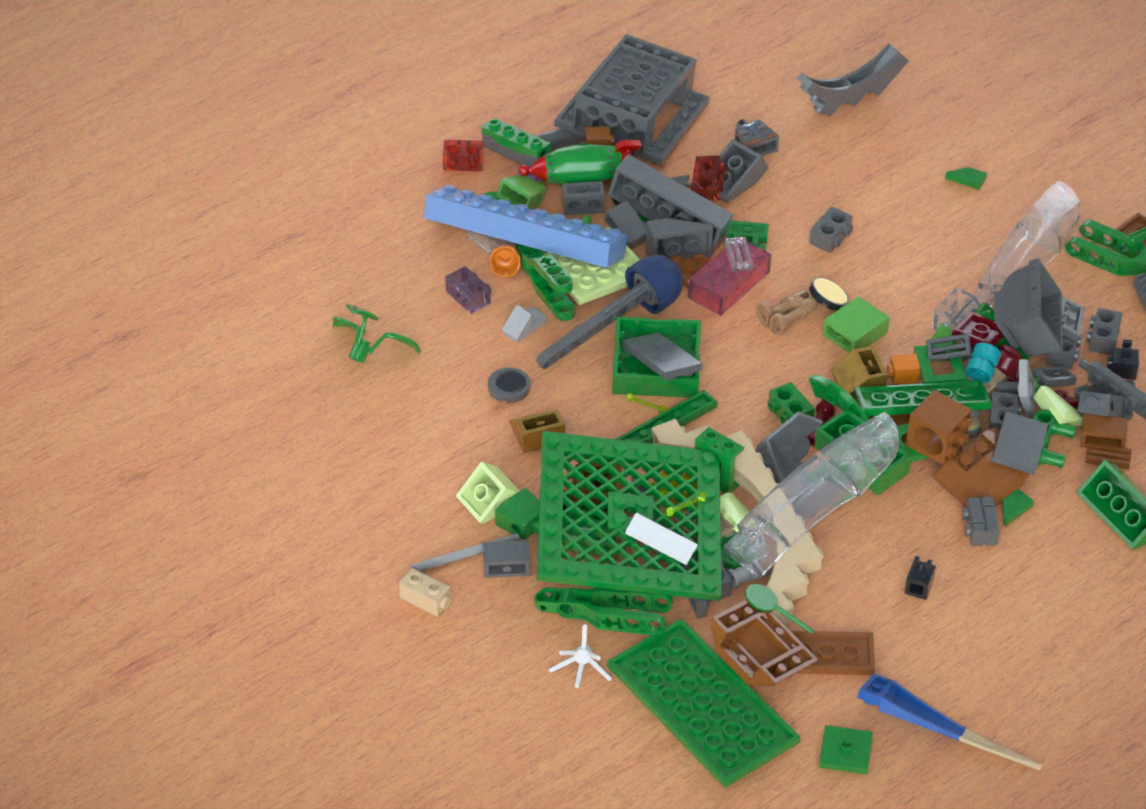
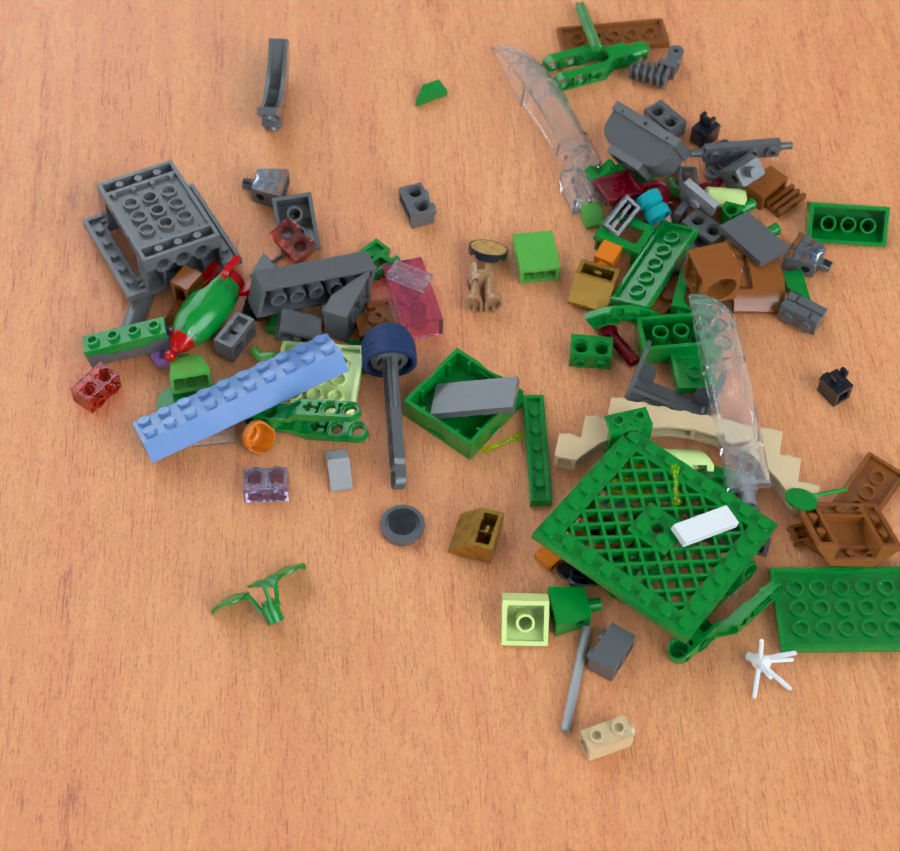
camera: 55 degrees left, 10 degrees up
(1050, 494) = (807, 256): none -> dark grey torso

